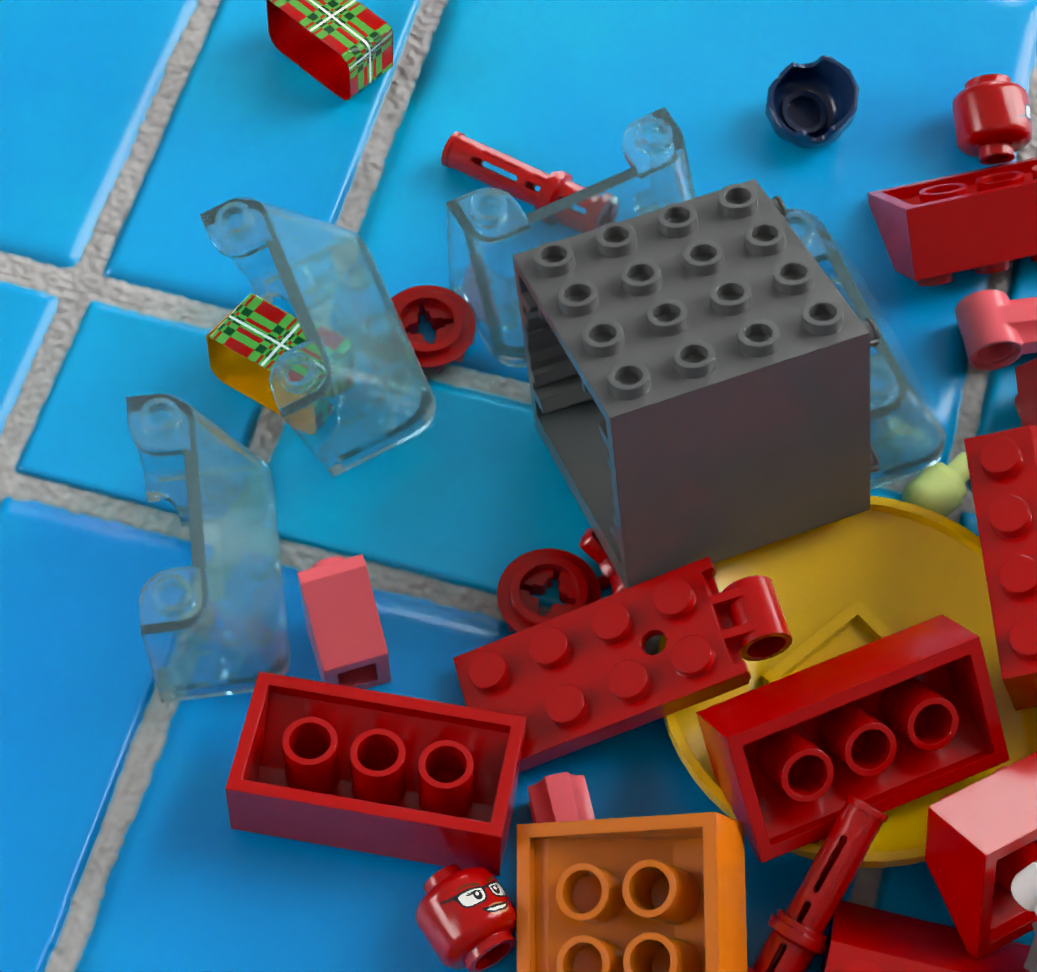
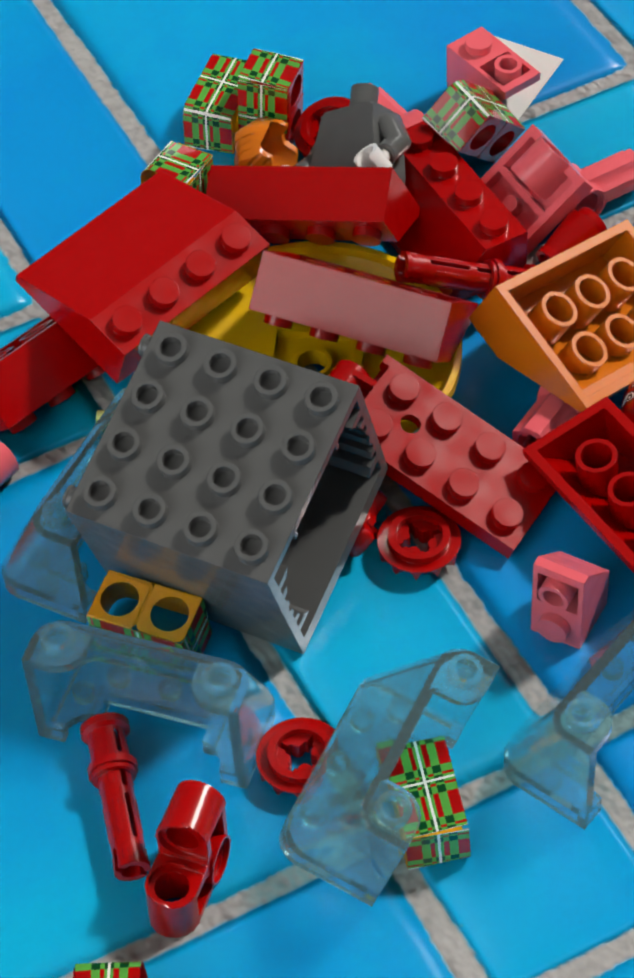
camera: 130 degrees left, 10 degrees down
(408, 164) = (189, 860): none -> red piece

